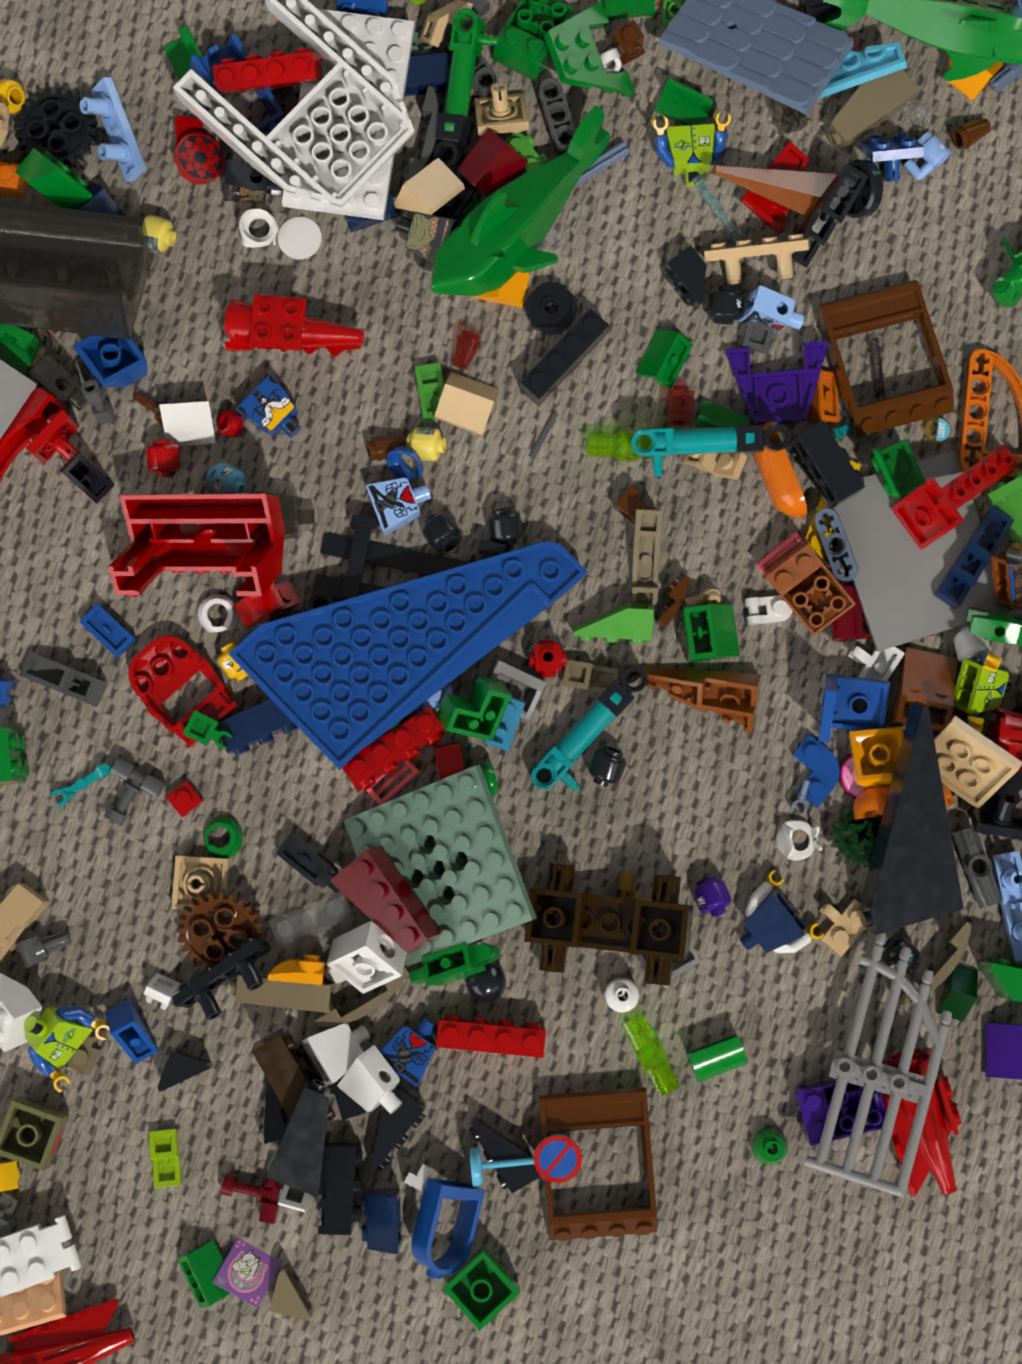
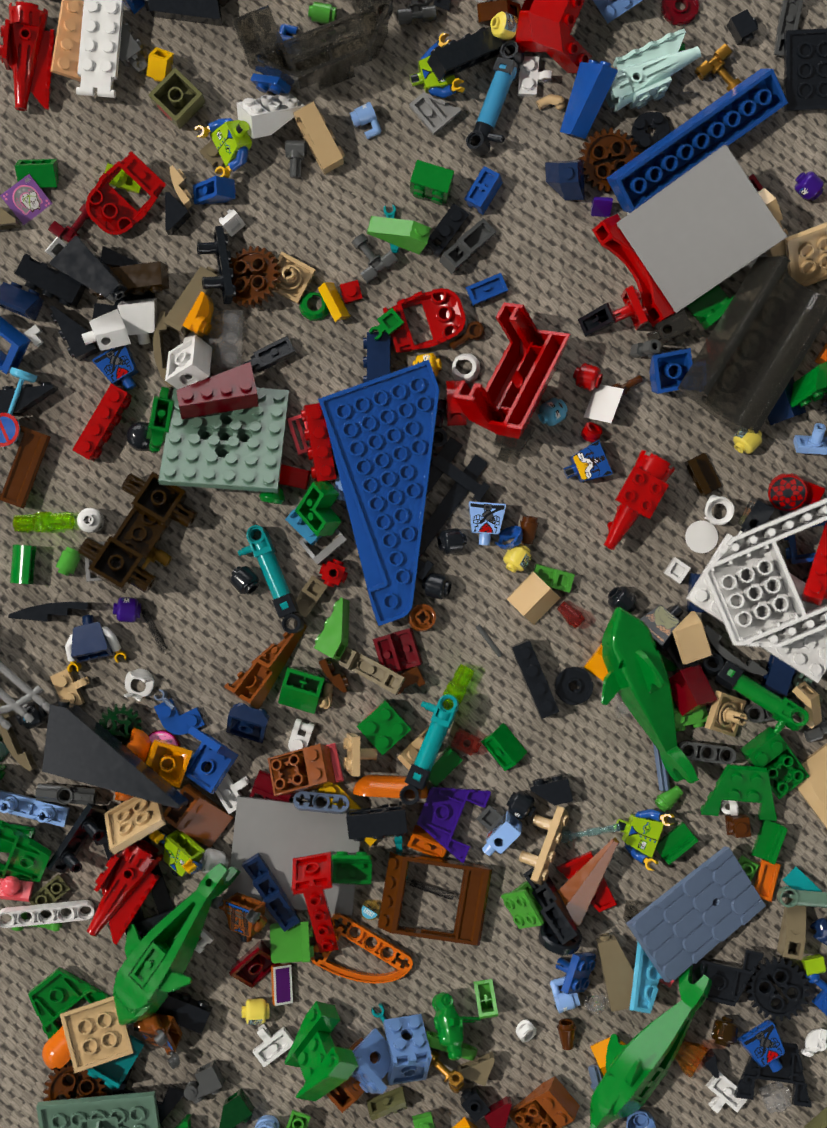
camera: 110 degrees right, 5 degrees up
(53, 715) = (446, 229): none -> black plate
(82, 766) = (400, 232): none -> bright green slope
(138, 1082) = (178, 180): none -> tan slope
(167, 623) = (474, 331): none -> reddish brown plate
(207, 814) = (333, 301): none -> yellow slope
(213, 1151) = (110, 209): none -> red slope
(222, 268) = (703, 474): none -> dark brown panel
(354, 247) = (677, 570): none -> white plate
(419, 297) = (622, 598): none -> black head
(552, 525) = (422, 617): none -> dark orange wheel
(606, 538) = (398, 650): none -> dark red slope
(635, 137) = (668, 798): none -> bright green cone
(686, 999) = (68, 561): none -> bright green brick
(708, 511) = (384, 727): none -> green brick
(720, 860) = (157, 632): none -> black piece
(757, 530) = (355, 754): none -> tan plate
(764, 1001) = (45, 611): none -> black slope
(781, 679) = (247, 722): none -> dark blue slope
(845, 248) = (523, 906): none -> bright green bracket
(977, 244) = (485, 998): none -> bright green slope
(993, 180) = (525, 1030): none -> white tile

